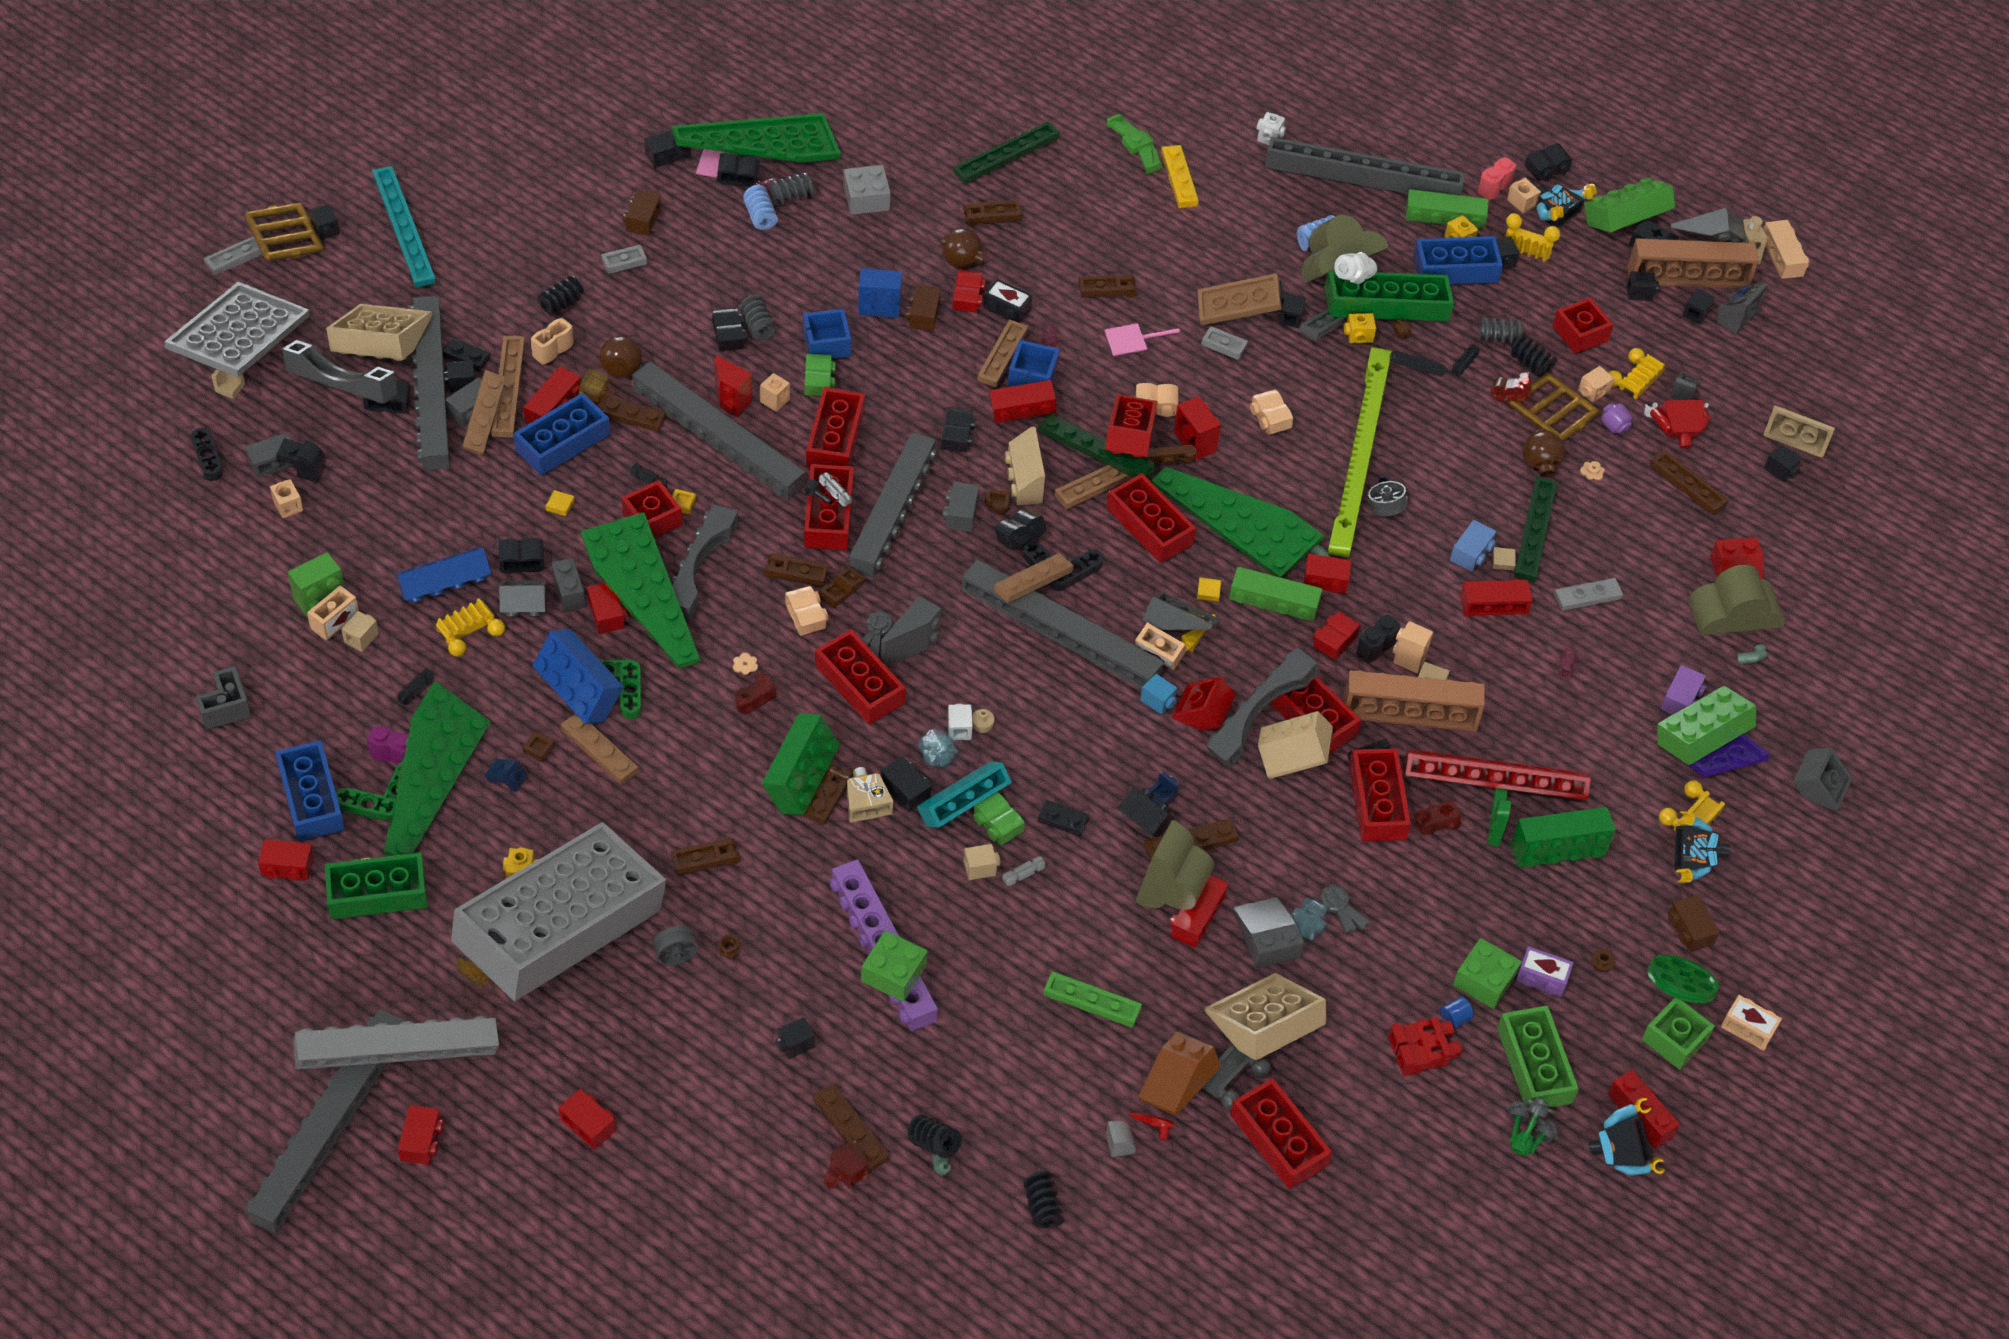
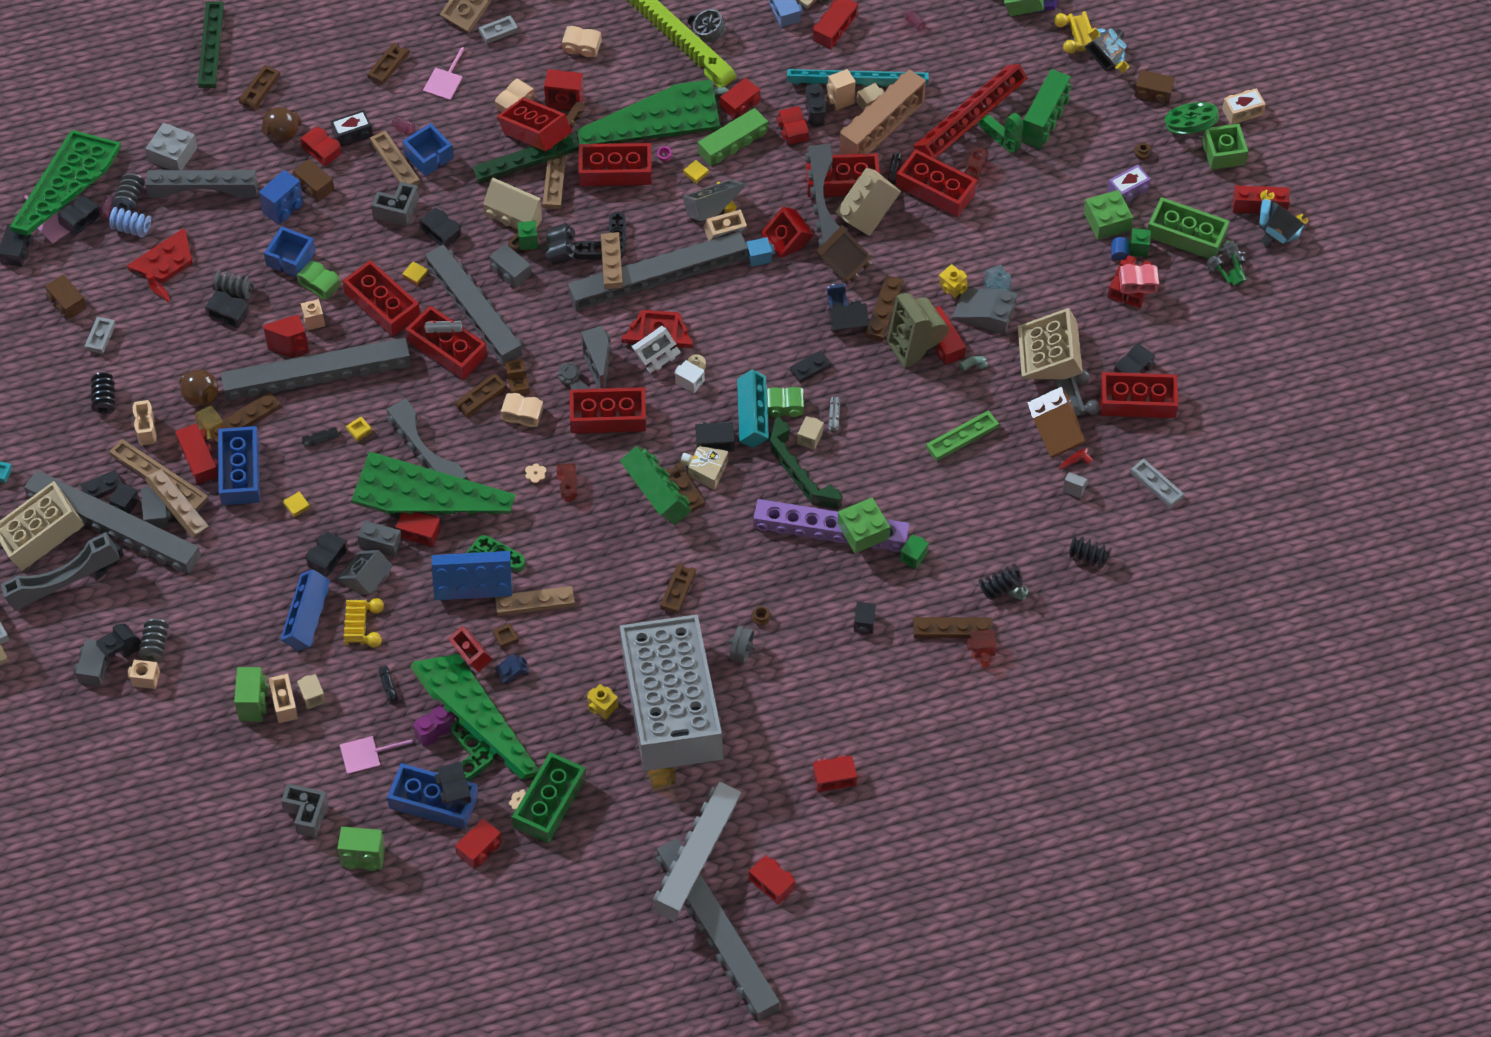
camera: 50 degrees left, 5 degrees up
(206, 461) = (45, 699): black beam -> none
(208, 767) = (361, 848): none -> bright green brick
(320, 793) = (453, 784): none -> black brick
(324, 712) = (363, 755): none -> bright pink piece
(325, 482) = (153, 640): none -> dark grey piece
(497, 724) = (470, 649): none -> red brick
(657, 504) = (355, 446): red brick -> none
(711, 268) = (156, 287): none -> red bar
(748, 257) = (165, 259): none -> red wing
(811, 490) = (431, 341): black hand -> none
(827, 209) = (169, 182): none -> dark grey arch
(891, 442) = (415, 273): none -> yellow tile
(913, 1036) = (914, 551): none -> green brick
(937, 748) = (697, 404): clear light blue brick -> none
(949, 384) = (396, 208): none -> dark grey brick
(953, 836) = (825, 497): none -> dark green slope
(965, 668) = (653, 346): none -> white brick
(993, 665) = (651, 320): none -> red wing
(1004, 496) = (527, 235): none -> green brick
(1023, 401) = (451, 174): red brick -> none
(1190, 1220) = (1157, 483): none -> light grey tile
(1193, 956) = (973, 360): none -> sand green arm
(1199, 551) = (667, 151): none -> dark pink hinge
(1214, 763) = (844, 255): none -> reddish brown panel
(1273, 879) = (953, 281): none -> yellow brick
(1322, 1107) = (1136, 361): none -> black brick
(1337, 902) = (991, 258): dark grey piece -> none
(1421, 1044) = (1139, 279): none -> coral brick
(1447, 654) = (865, 78): none -> teal plate
(1479, 1024) = (1140, 242): none -> green brick

